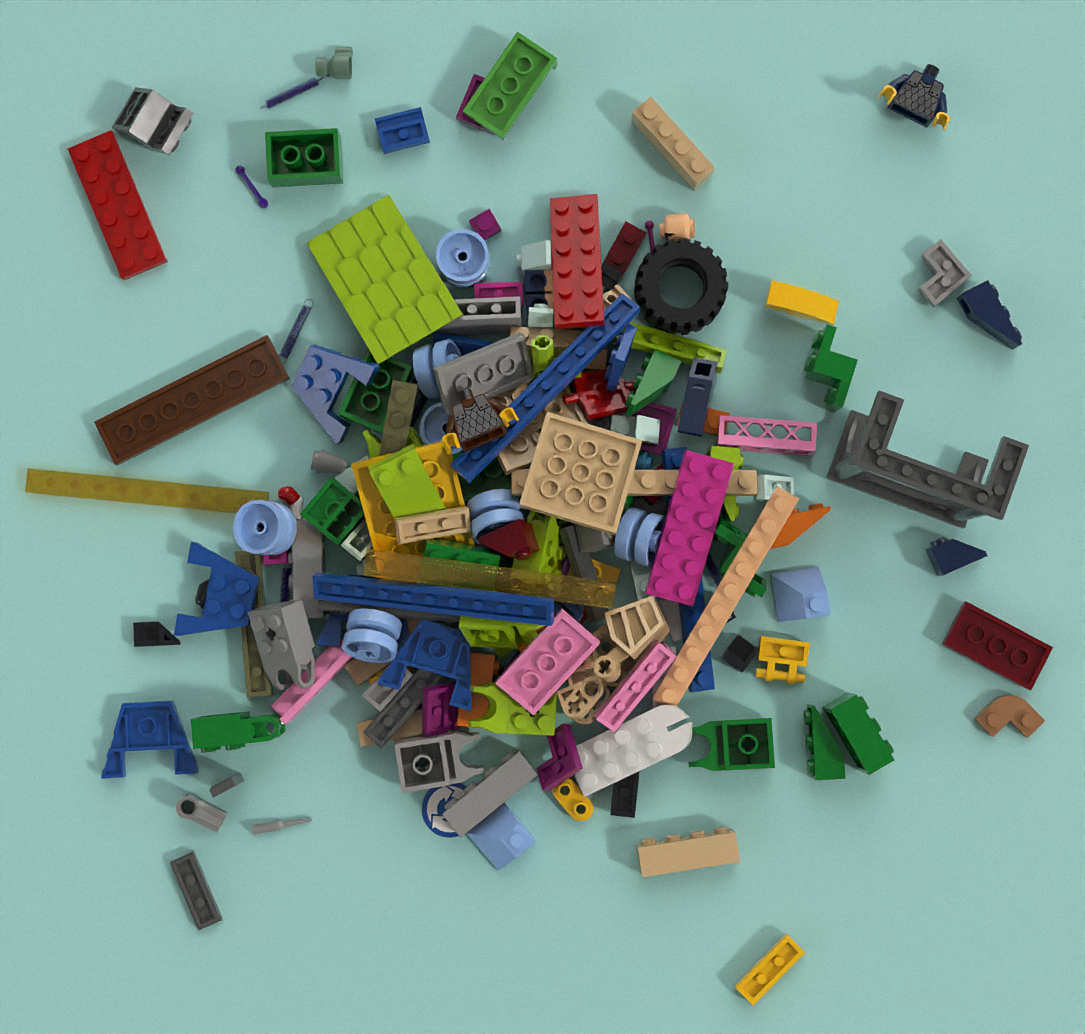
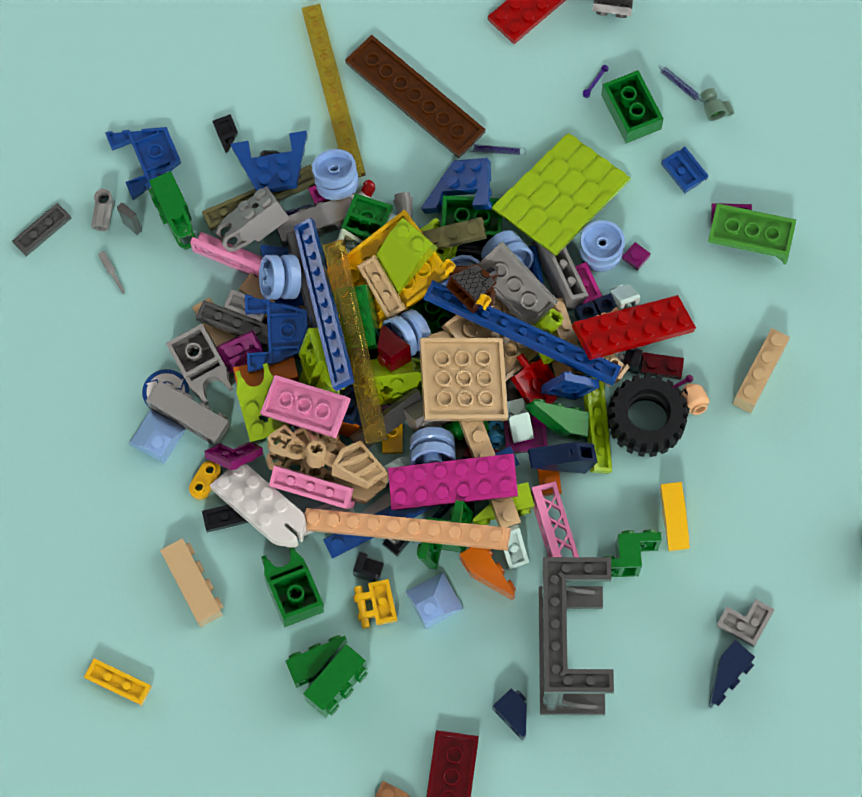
camera: 70 degrees right, 15 degrees down
(540, 316) = (577, 312): light aqua slope -> none

